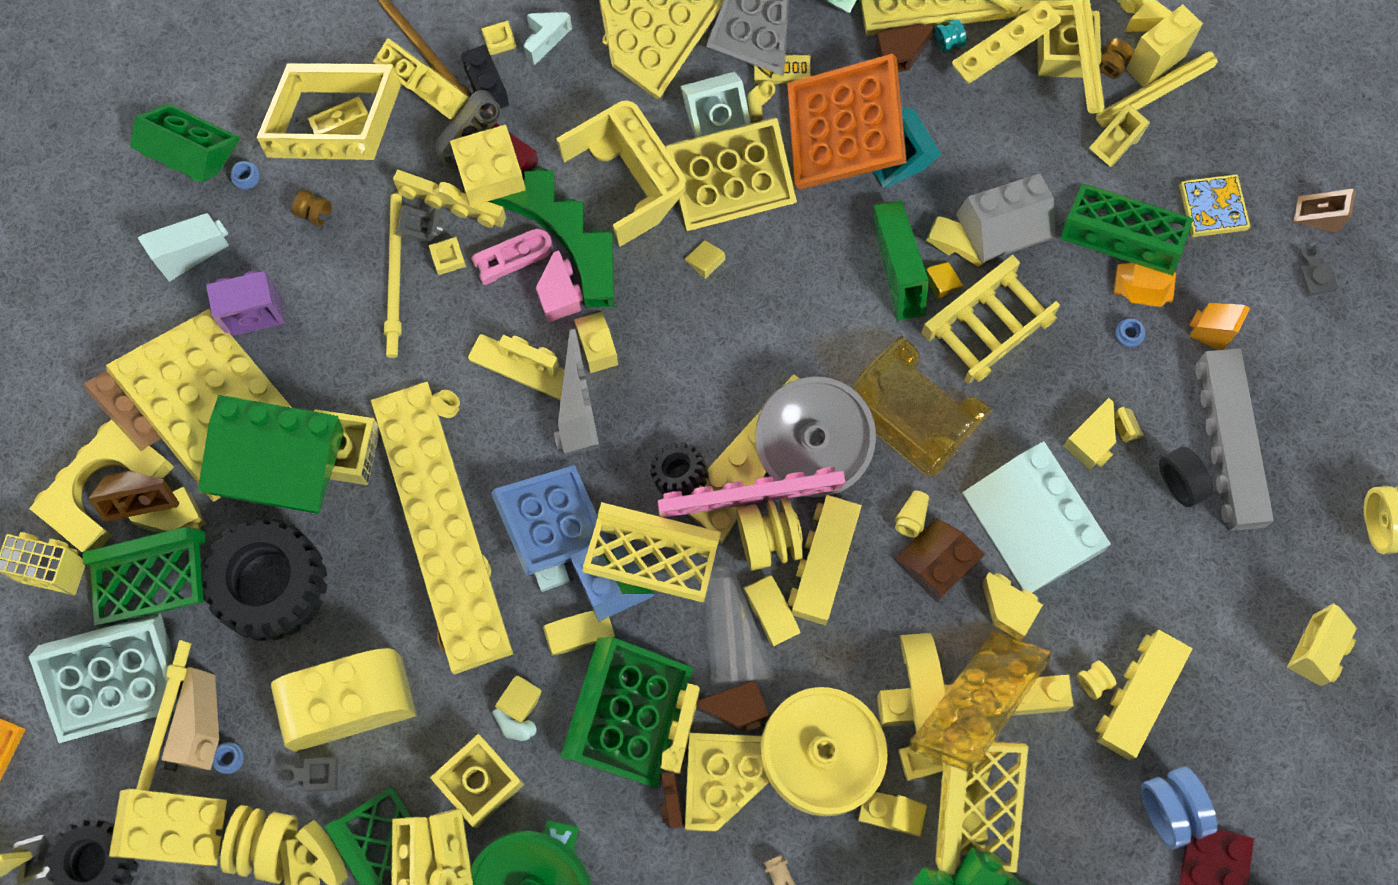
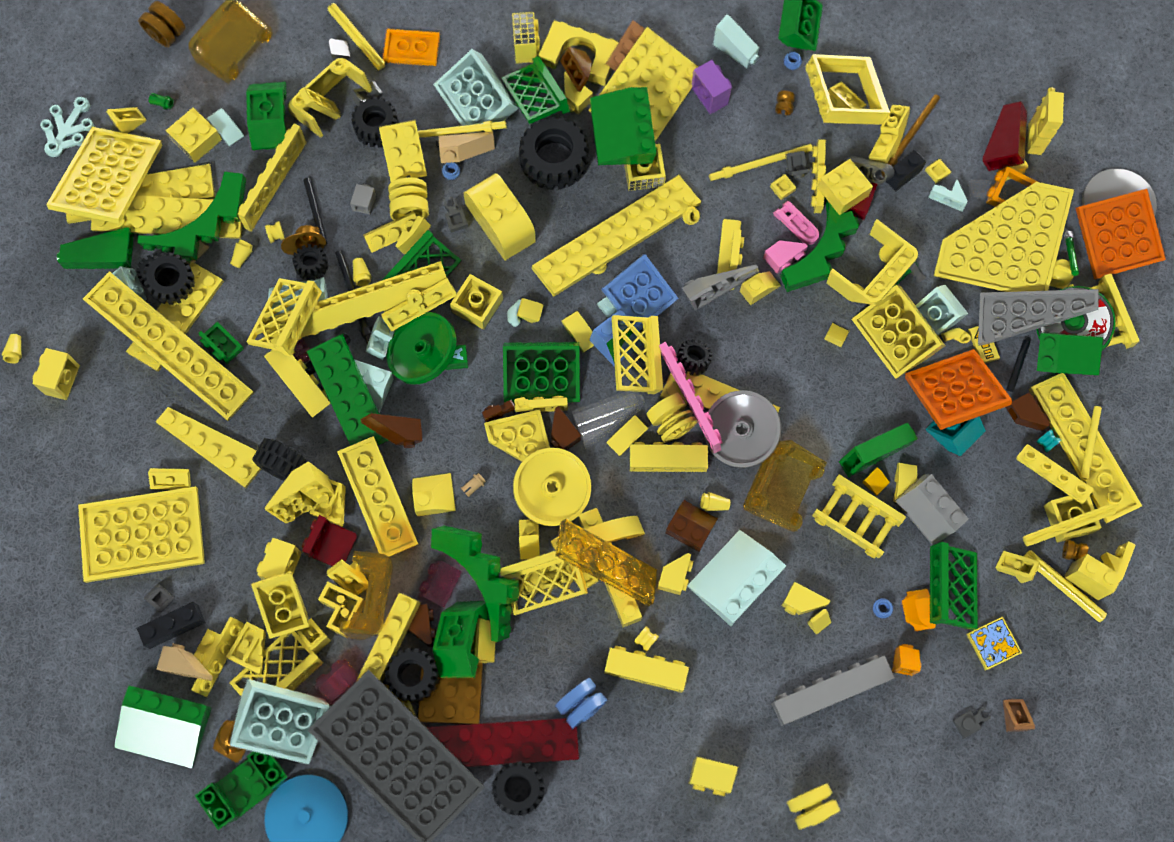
camera: 70 degrees right, 0 degrees up
(827, 36) = (1018, 365): none -> black bar
(1186, 476) = (794, 662): black tyre -> none

